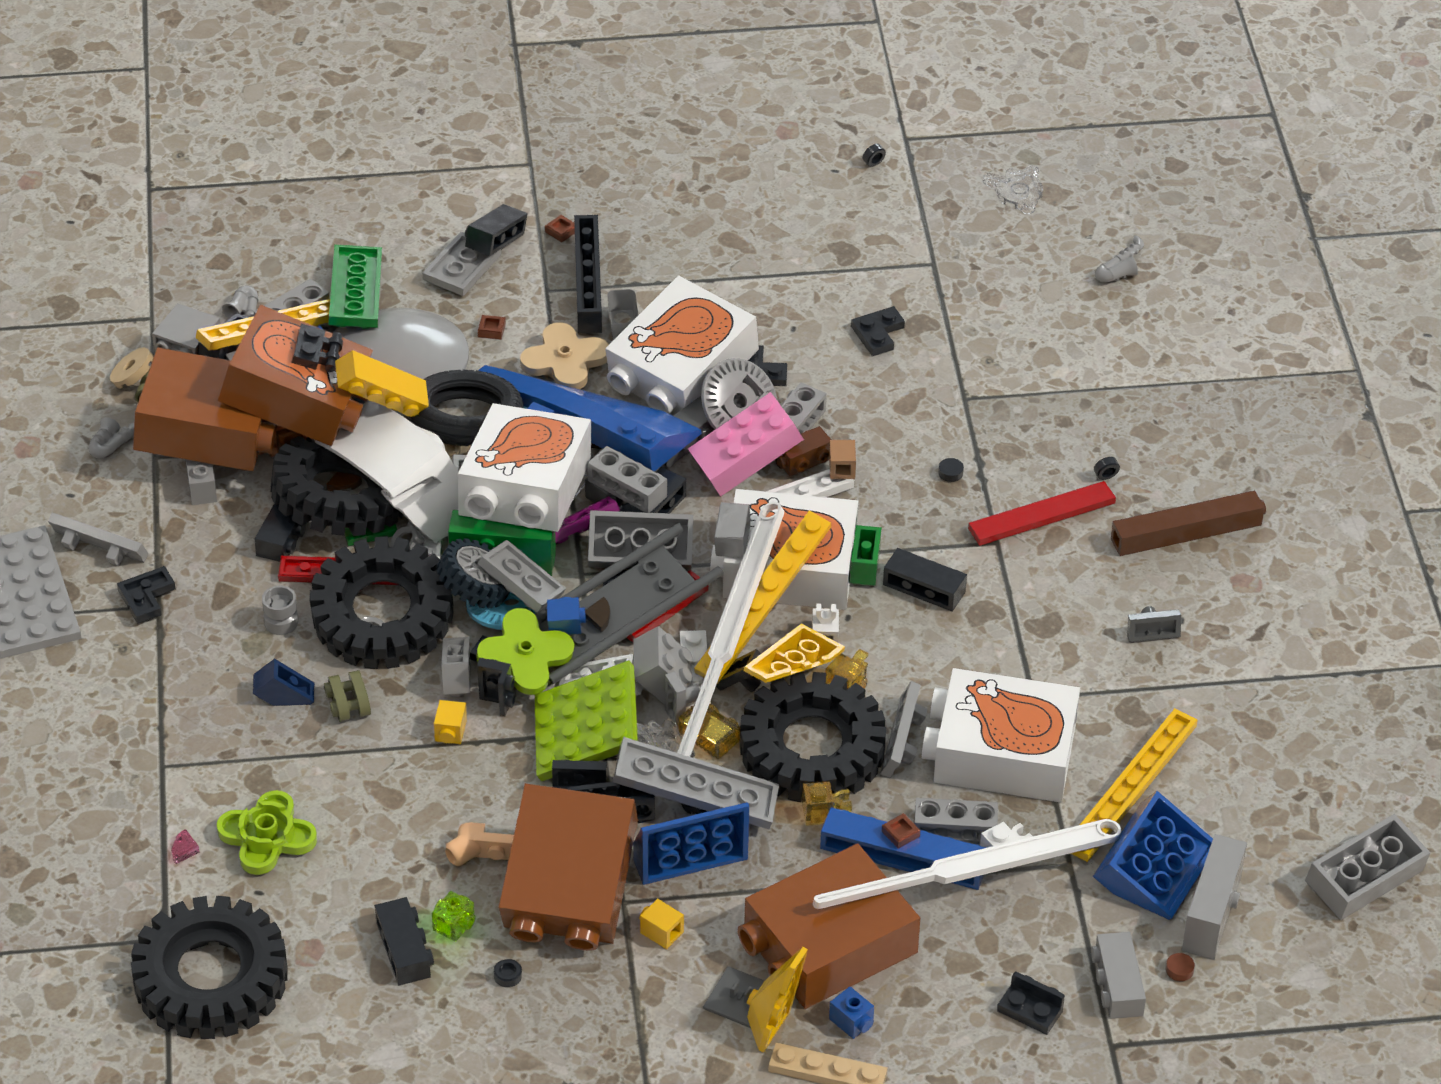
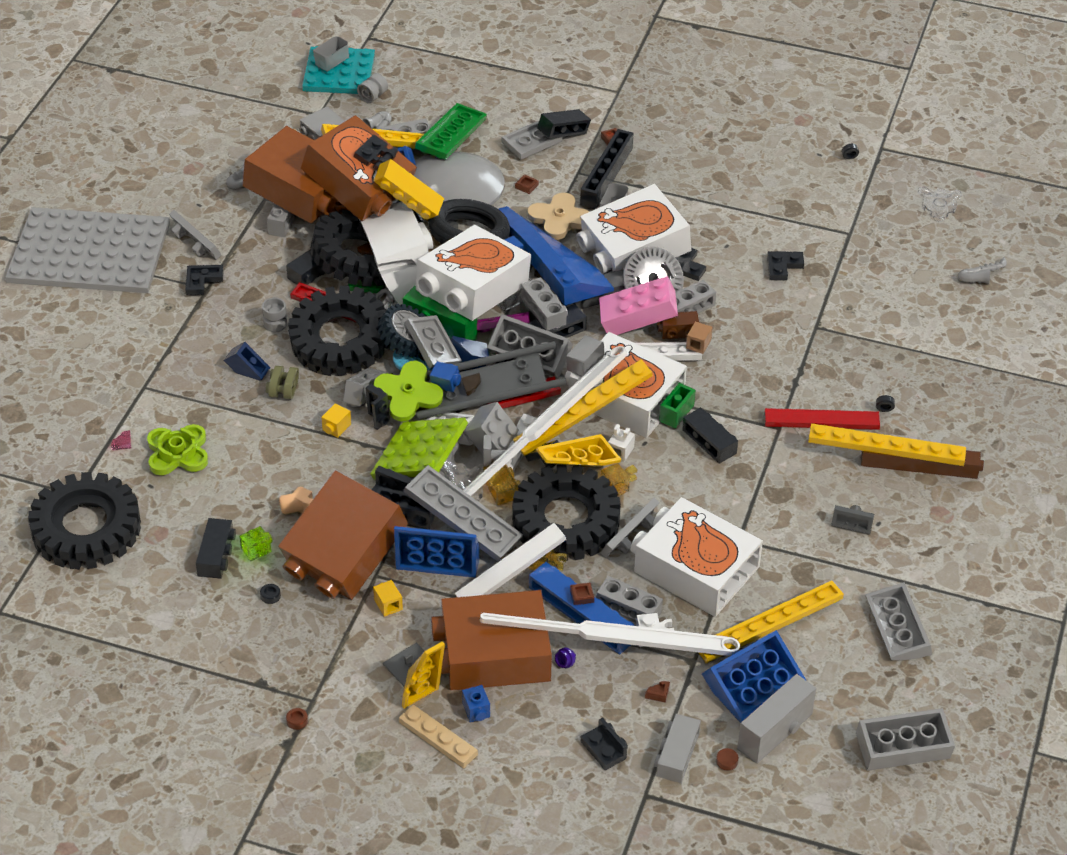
camera: 25 degrees right, 0 degrees up
(116, 239) = (331, 53): none -> light grey piece
(140, 247) = (341, 78): none -> teal plate
(207, 258) = (372, 88): none -> light grey wheel
(569, 571) = (470, 349): none -> dark blue slope
(794, 826) = (514, 563): none -> white tile
(926, 914) = (565, 658): none -> dark purple plate
(951, 469) = (775, 370): black tile -> none
(1053, 917) = (658, 692): none -> copper tile
(1145, 518) = (887, 444): none -> yellow plate
(1278, 731) = (899, 623): none -> light grey slope

